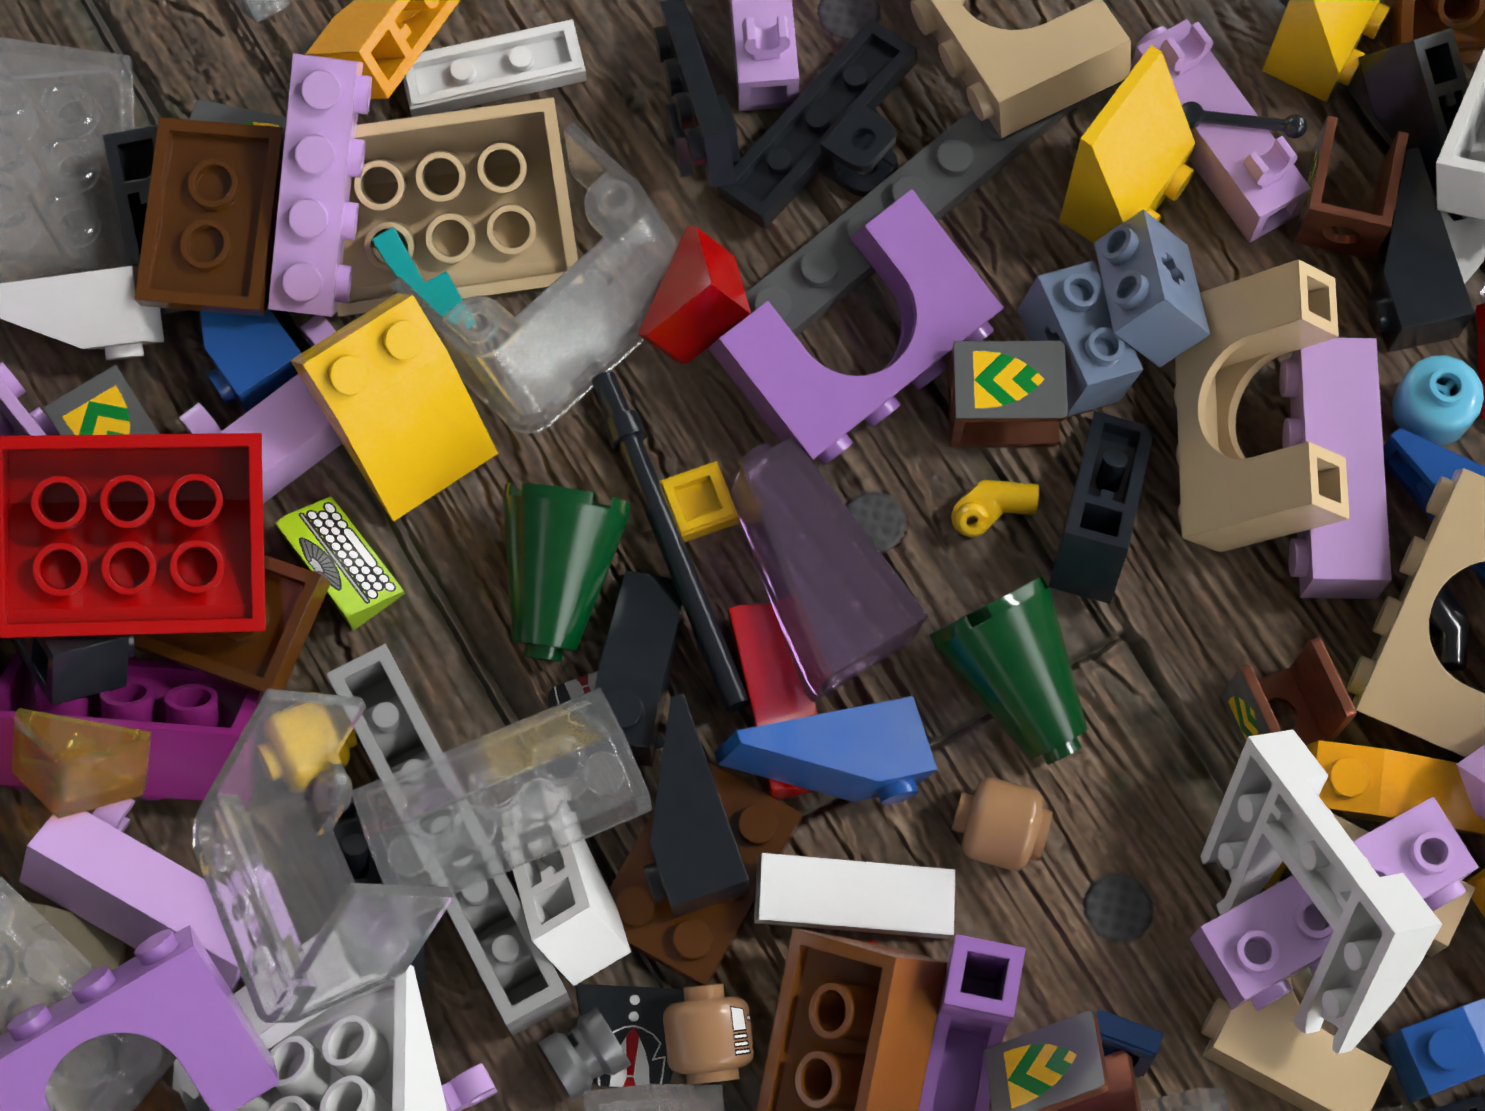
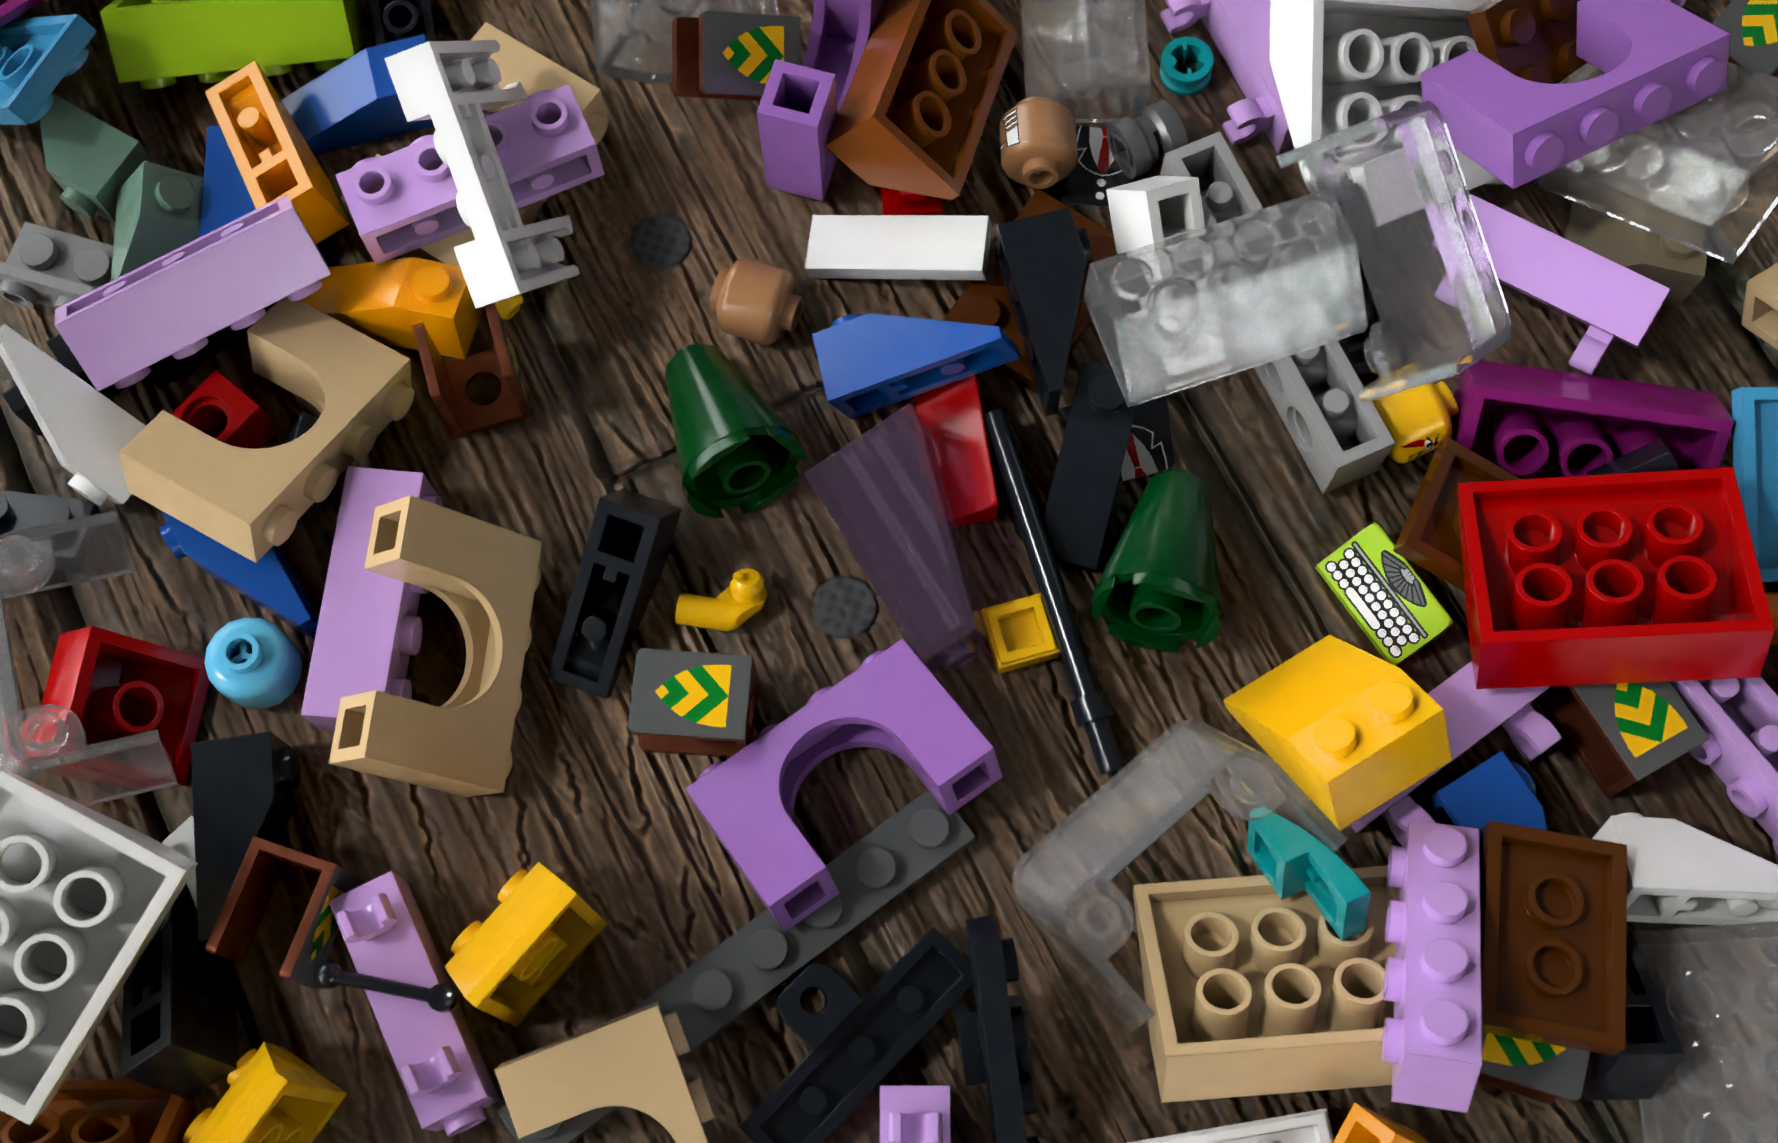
camera: 175 degrees left, 0 degrees up
(77, 761) = (1630, 371): clear yellow slope -> none
(696, 299) = (1007, 841): red slope -> none
(1074, 310) = (606, 763): sand blue brick -> none
(1136, 1039) = (678, 113): dark blue tile -> none
(1151, 288) = (525, 791): sand blue brick -> none

